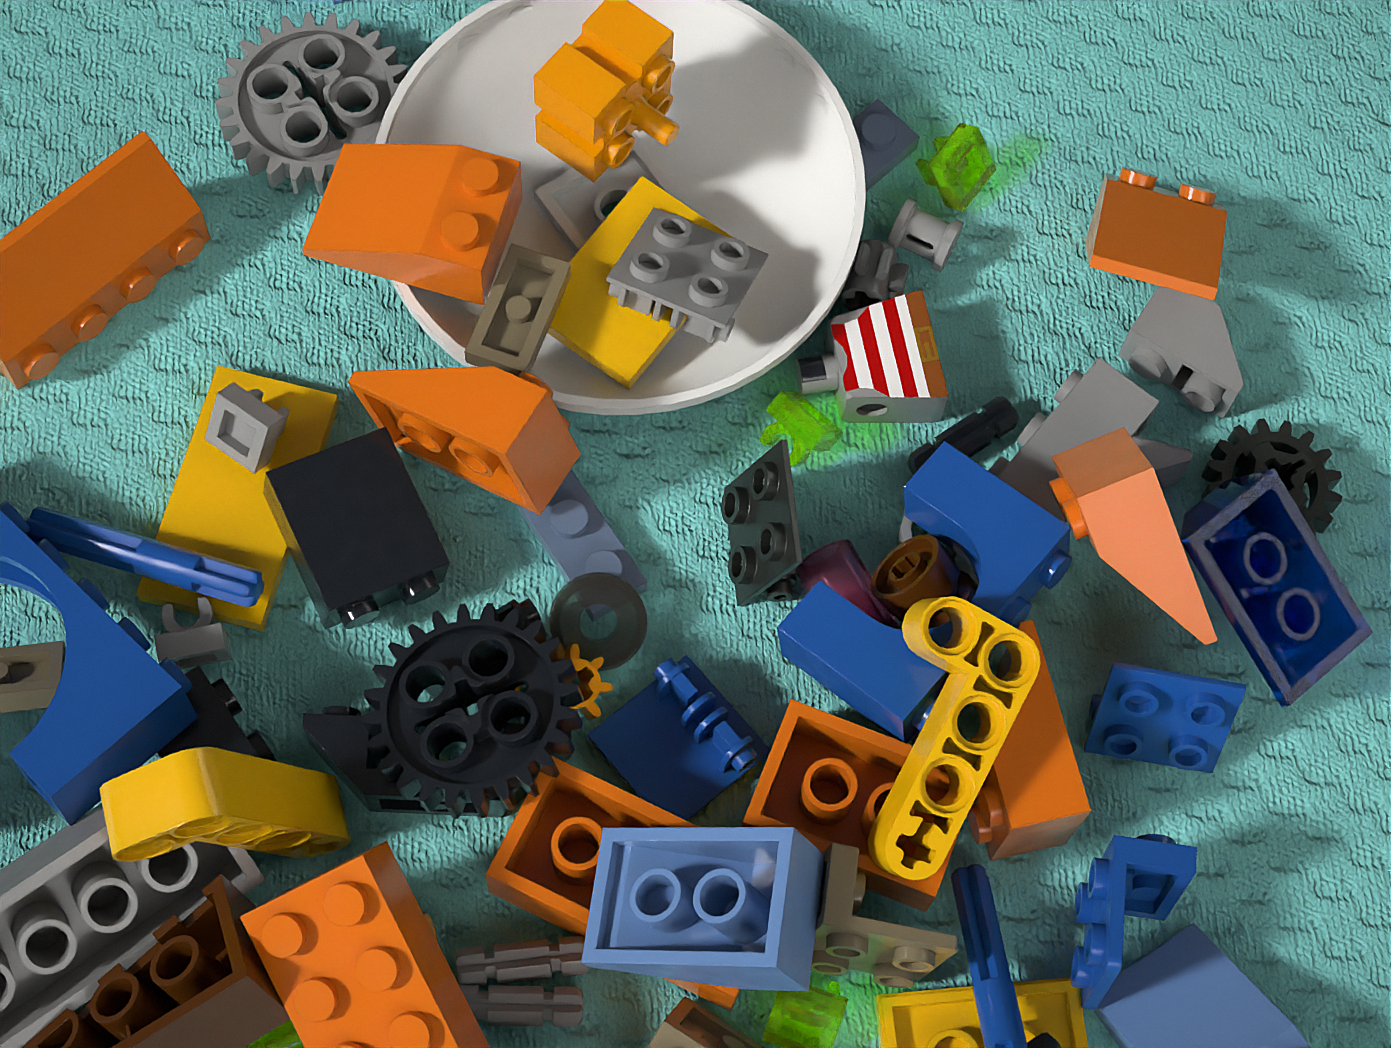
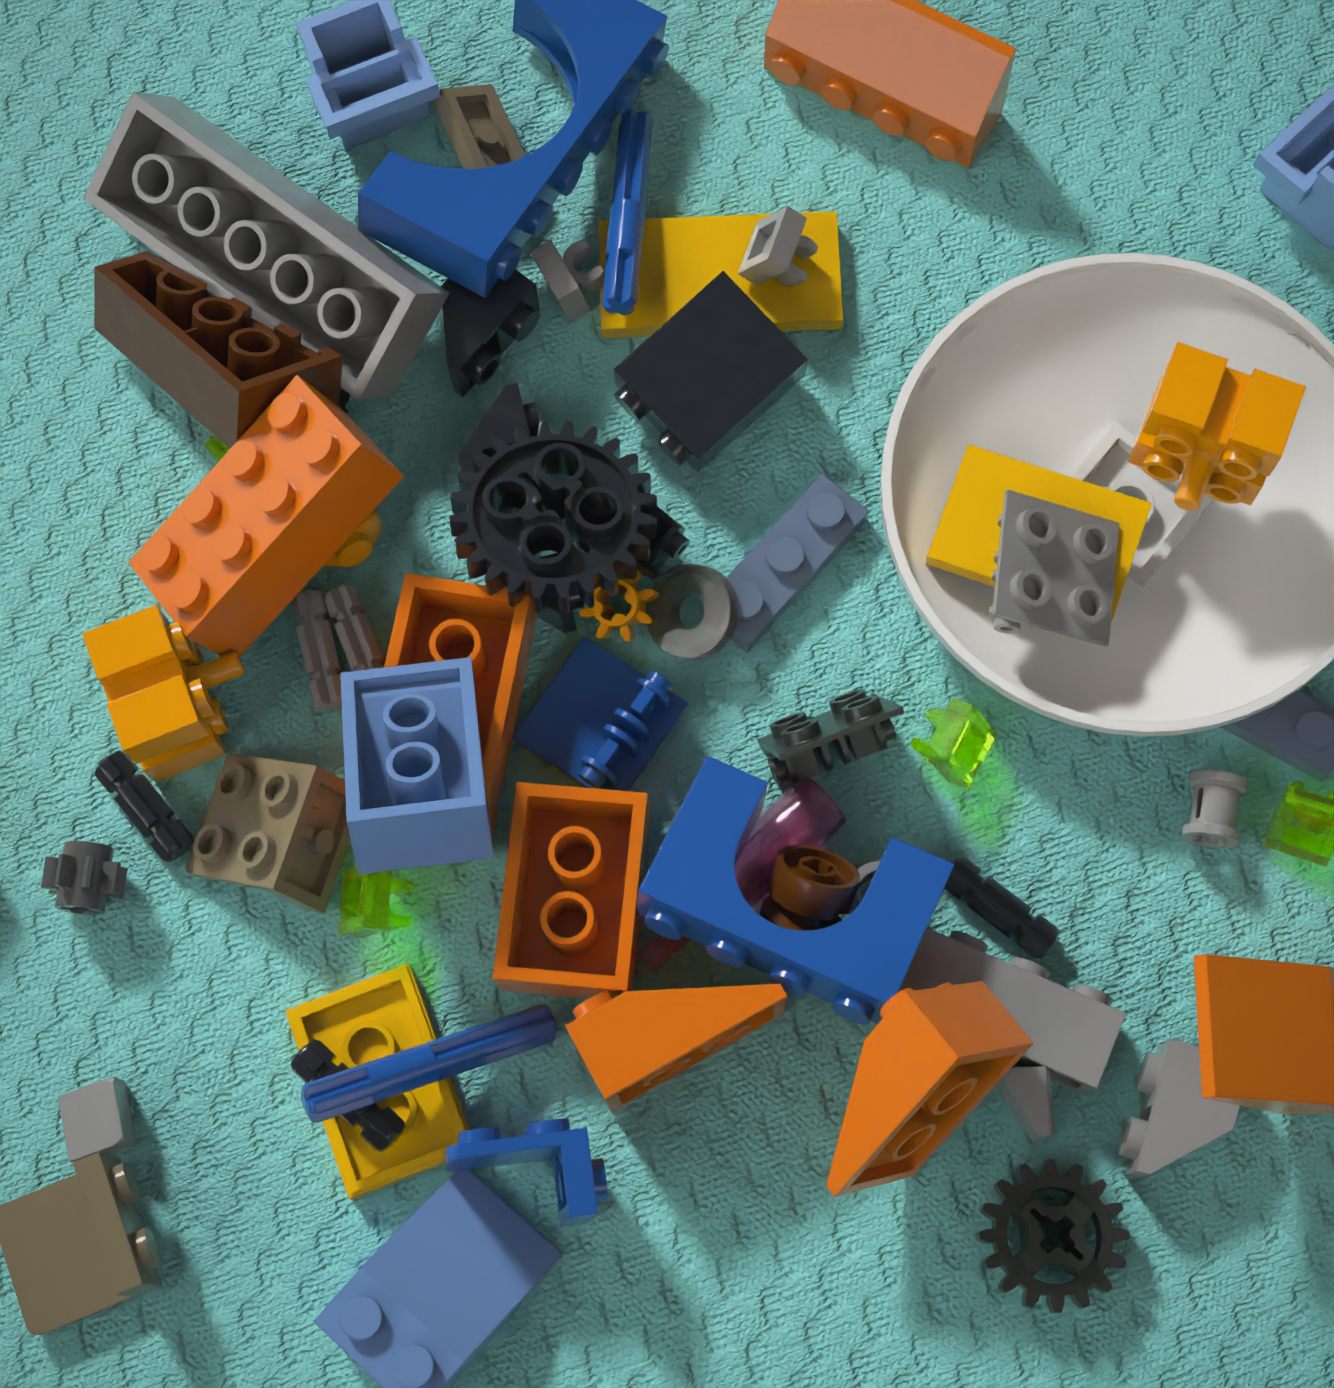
camera: 85 degrees right, 5 degrees up
(224, 802) = (396, 340): yellow beam -> none
(268, 128) = (1091, 173): light grey gear -> none
(419, 215) = (1022, 315): orange slope -> none
(476, 426) = (827, 441): orange slope -> none
(518, 311) = (953, 429): dark tan plate -> none
(874, 276) = (1140, 767): dark grey gear -> none
(880, 364) = (1050, 799): torso -> none
(887, 950) = (466, 884): dark tan bracket -> none
(940, 740) = (620, 932): yellow beam -> none
(1163, 717) = (748, 1160): blue hinge -> none
(1273, 582) = (913, 1239): clear blue slope -> none

